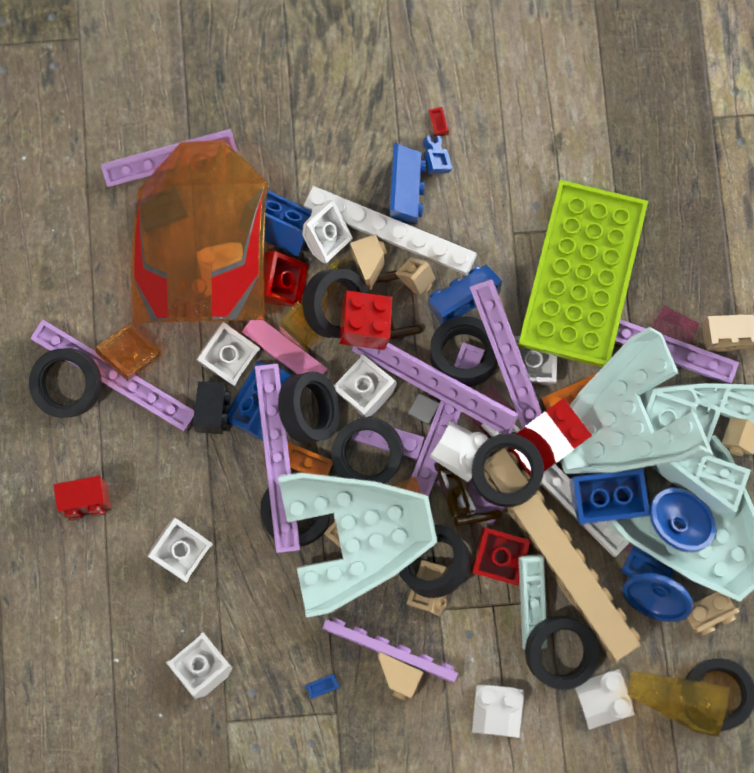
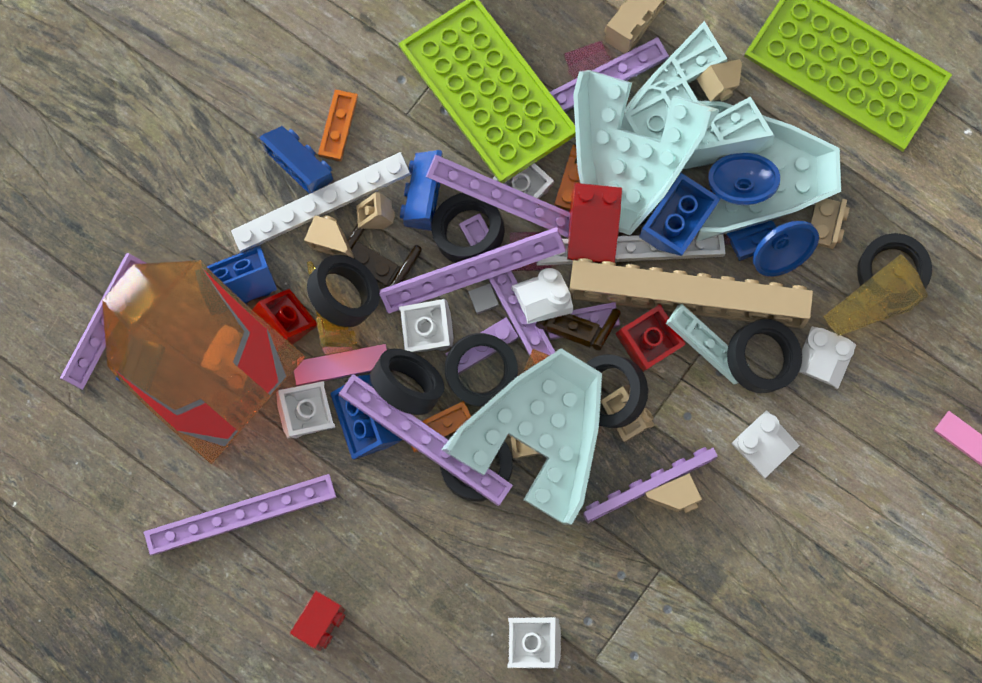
camera: 50 degrees left, 0 degrees up
(38, 386) = (204, 585): black tyre -> none
(128, 351) = (232, 485): clear orange plate -> none
(179, 549) = (426, 580): white slope -> none
(210, 407) = (335, 459): black brick -> none
(322, 686) = (631, 561): blue piece -> none
(326, 231) = (278, 250): white slope -> none
(365, 320) = (378, 279): red brick -> none
(436, 158) = (295, 119): plate -> none
(438, 122) = (268, 94): red piece -> none
(459, 191) = (338, 125): none -> orange plate
(513, 442) = (594, 243): black tyre -> none

